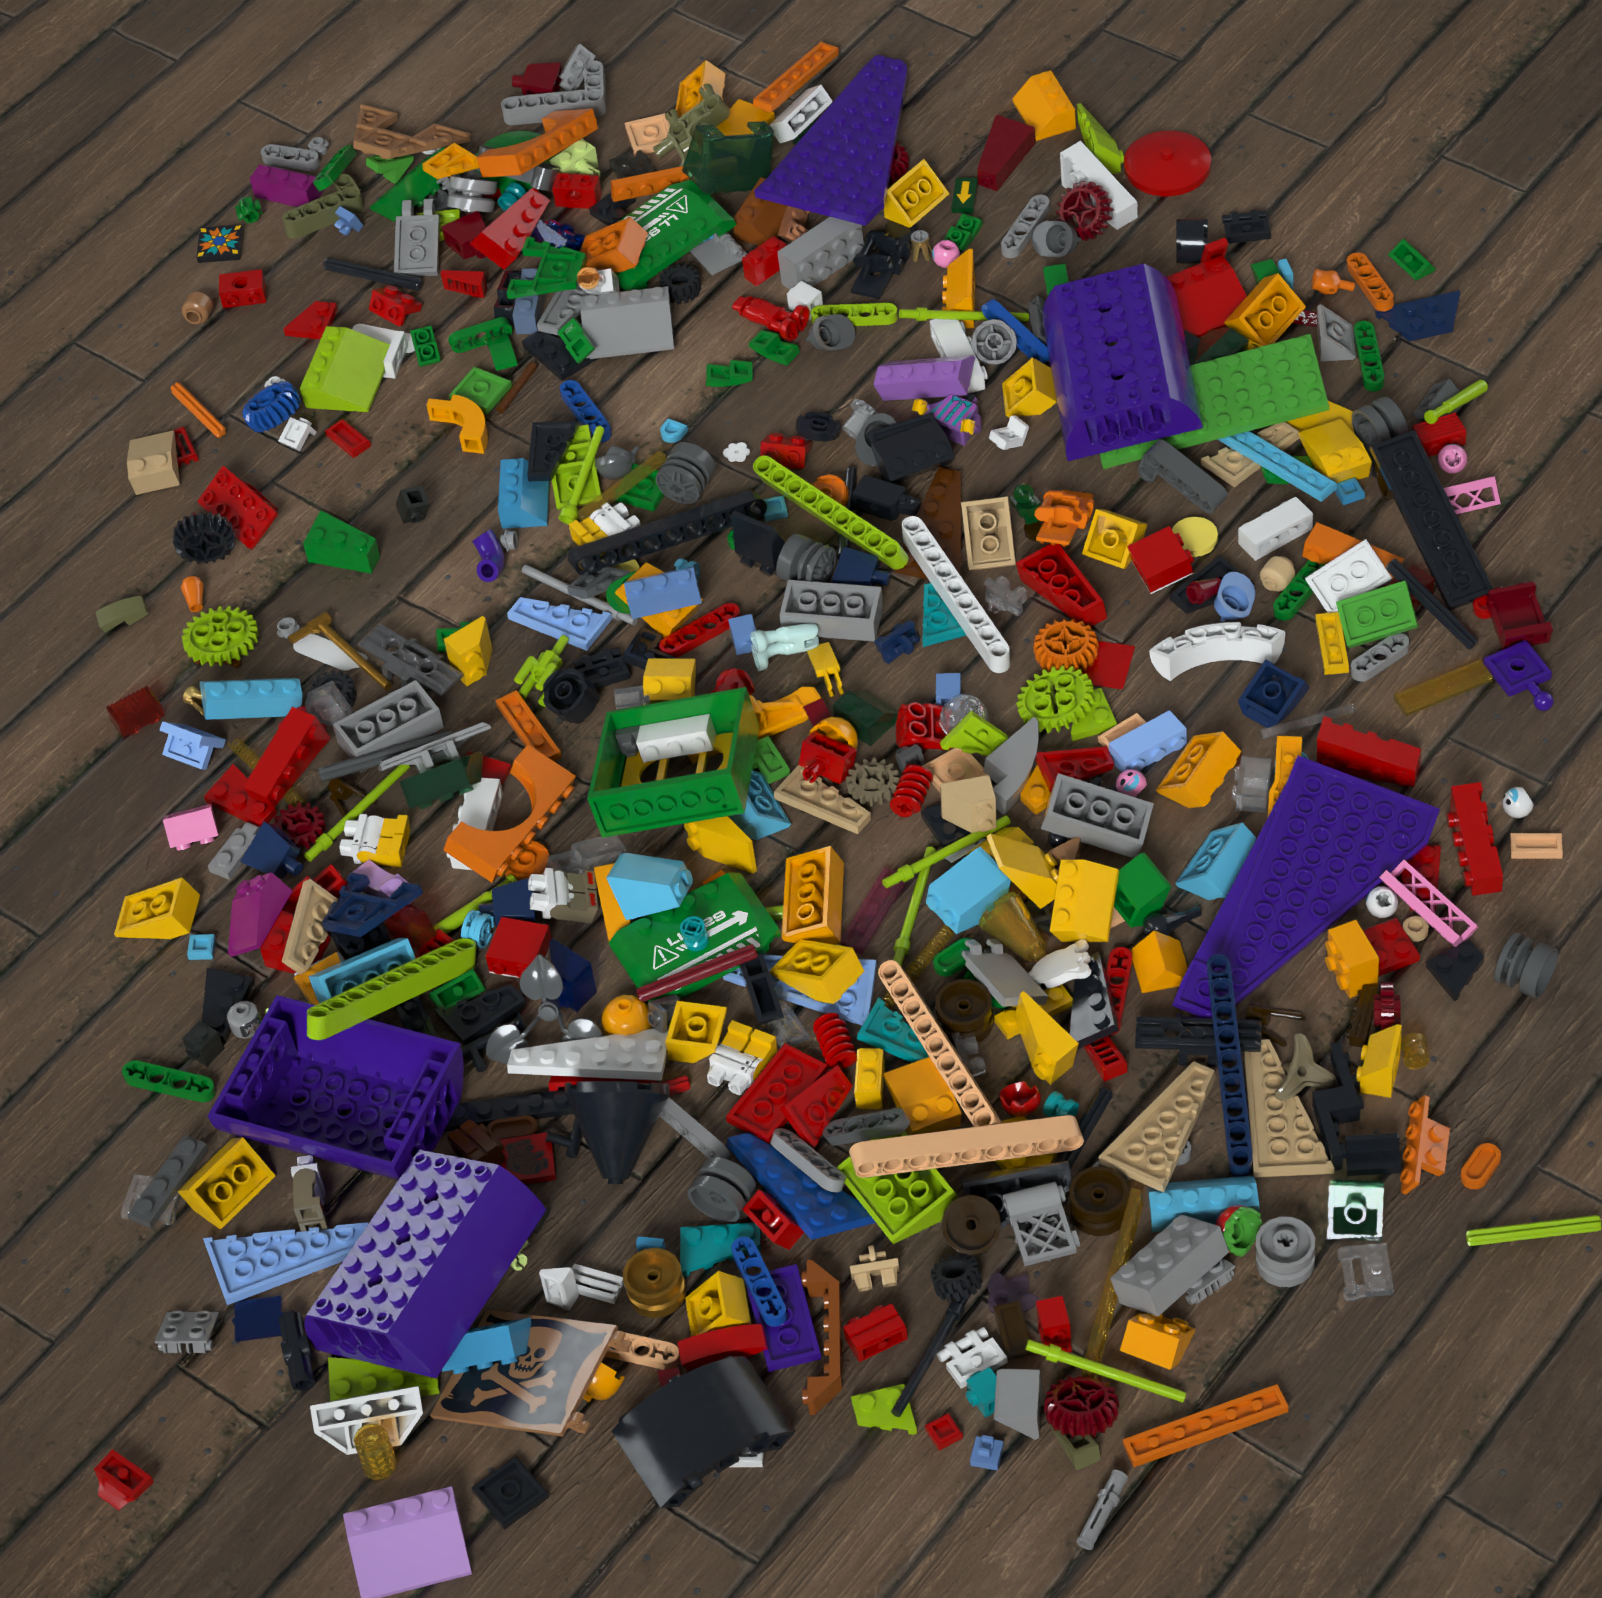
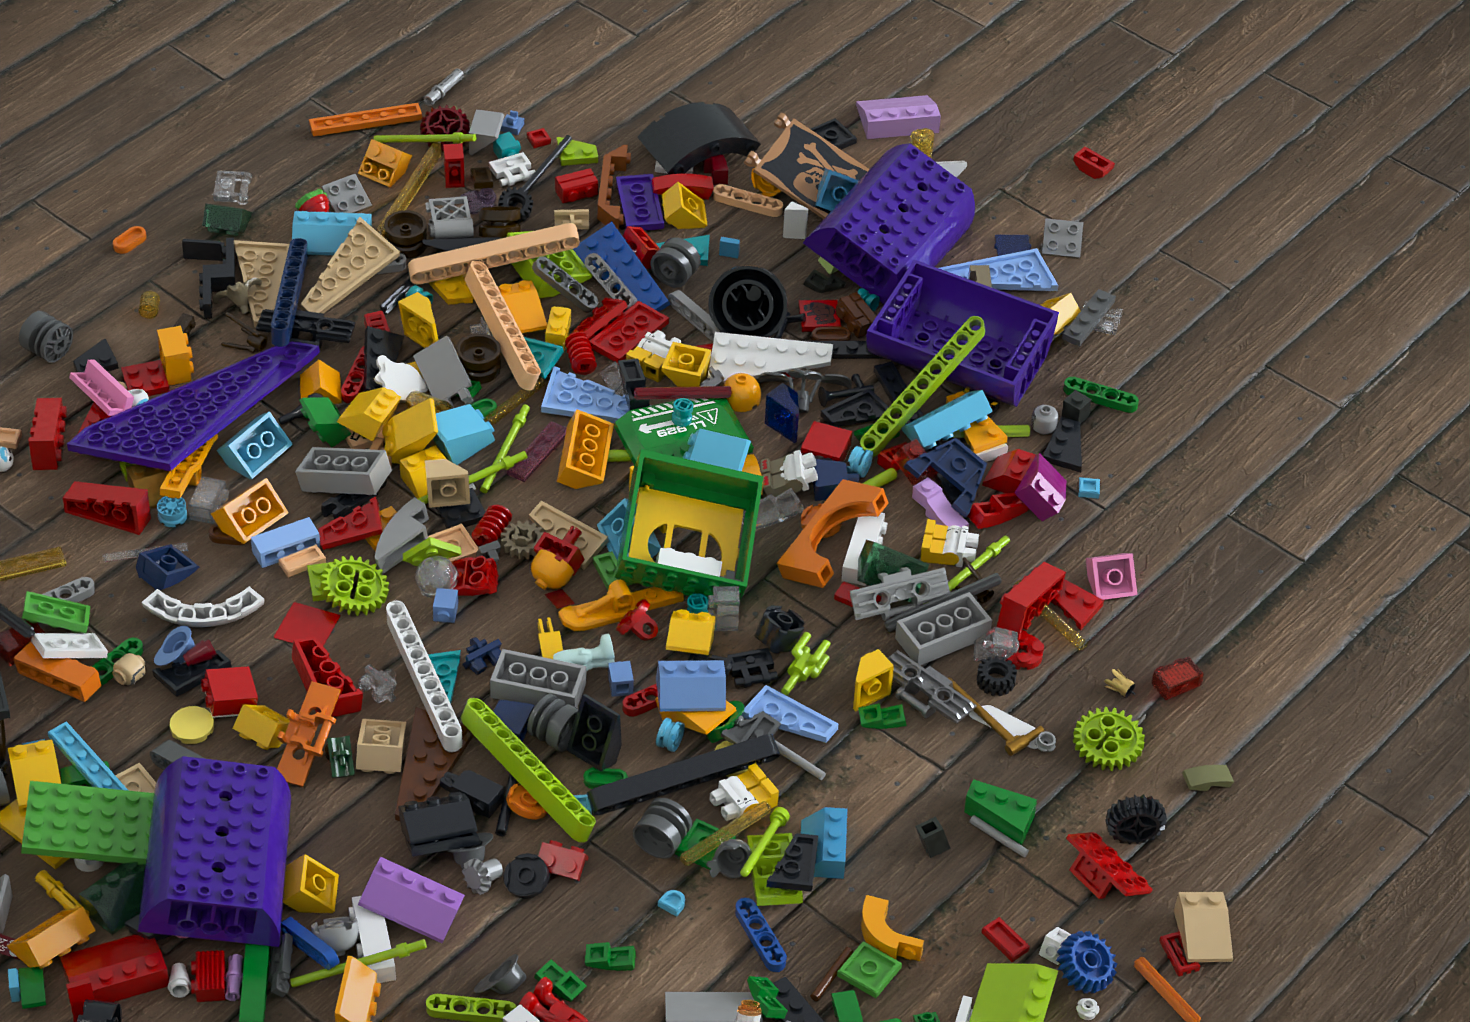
camera: 175 degrees right, 5 degrees down
(158, 911) = (1128, 508): yellow slope -> none
(190, 744) = (1120, 639): light blue bracket -> none
(192, 590) = (1141, 785): orange cone -> none
(229, 856) = (1072, 555): light grey hinge -> none
(250, 698) = (1071, 667): medium azure slope -> none
(273, 852) = (1035, 534): dark blue torso -> none
(296, 1350) = (984, 220): black piece -> none
(299, 825) = (1015, 562): dark red gear -> none
(307, 927) = (997, 463): tan wing -> none
(491, 556) = (853, 781): dark purple cylinder -> none
(509, 540) = (837, 800): light grey plate -> none
(527, 725) = (818, 621): orange plate -> none
(597, 1279) = (771, 238): white tile -> none
(654, 1282) = (727, 219): pearl gold wheel -> none
(736, 452) = (610, 867): white plant -> none
(758, 1281) = (650, 214): blue beam -> none
(819, 969) = (588, 390): yellow slope -> none
(866, 714) = (520, 596): clear green slope -> none
(954, 415) = (391, 852): torso -> none
(1010, 436) = (340, 842): white bracket -> none
(1020, 1099) = (447, 302): red hair -> none
(1080, 642) = (336, 629): orange gear -> none
(1130, 782) = (307, 508): bright pink piece -> none
(1169, 1265) = (367, 184): light grey brick -> none
(1275, 528) = (116, 715): white brick -> none
(1285, 1251) = (281, 193): light grey wheel -> none
(1332, 643) = (102, 608): yellow plate -> none
(1380, 1062) = (176, 291): yellow slope -> none
(1386, 1007) = (161, 316): dark red gear -> none
(1424, 1147) = (166, 249): orange bracket -> none
(1533, 1230) = (109, 198): lime axle -> none

